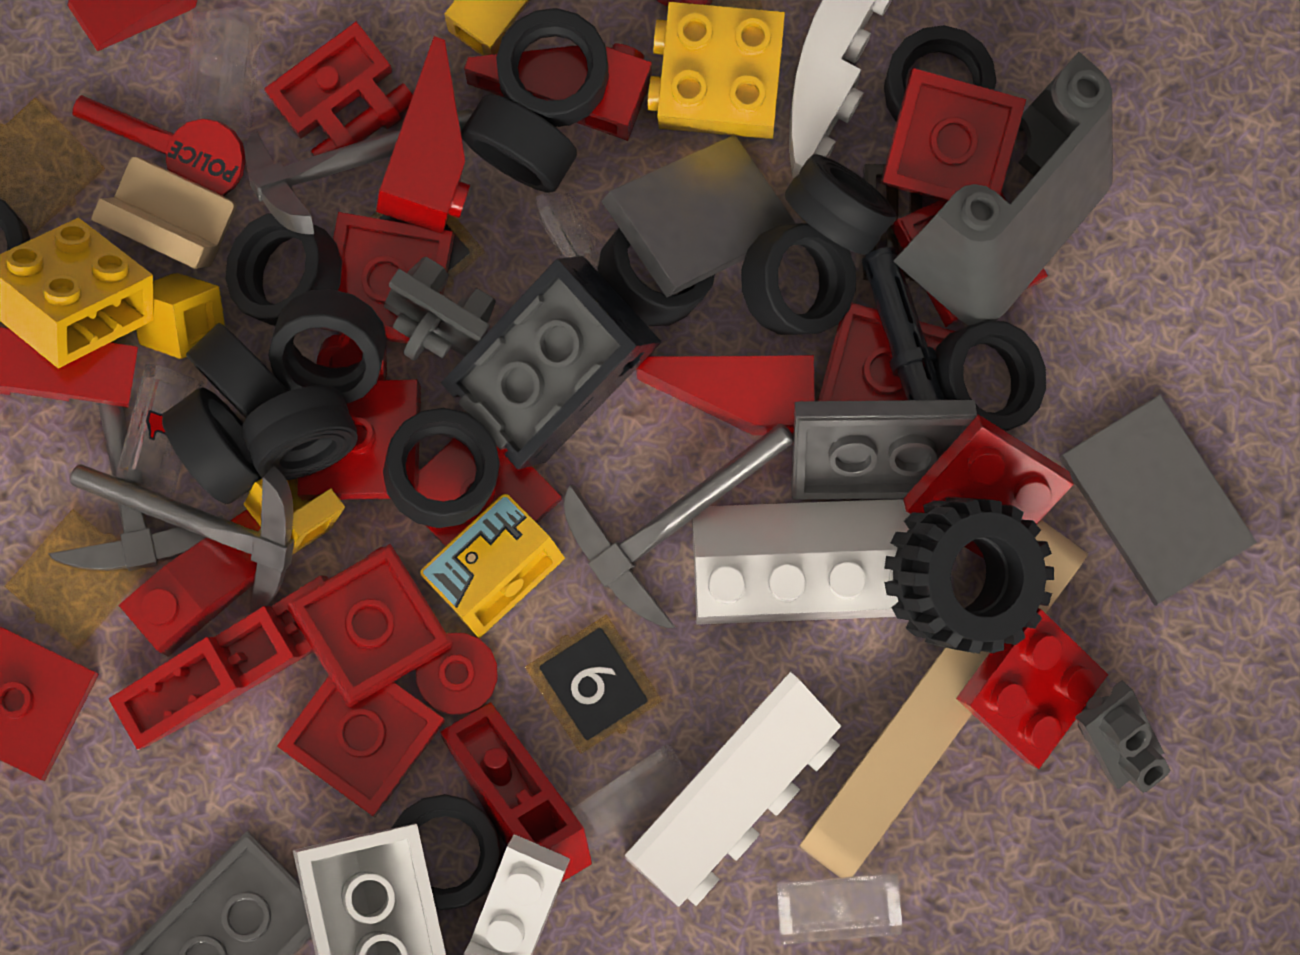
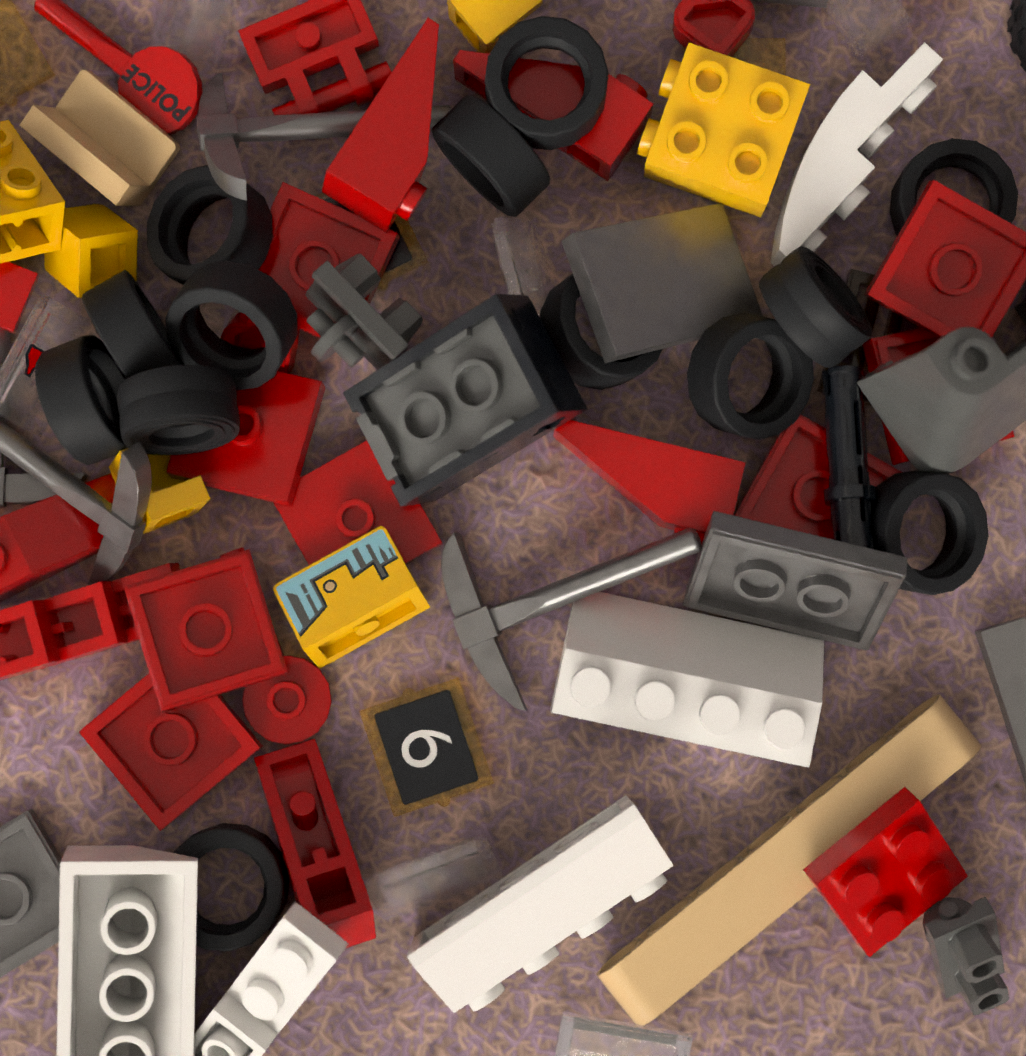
camera: 15 degrees right, 5 degrees up
(449, 424) = (326, 435): black tyre -> none
(993, 467) = (894, 655): red plate -> none
(1012, 581) = (889, 776): black tyre -> none

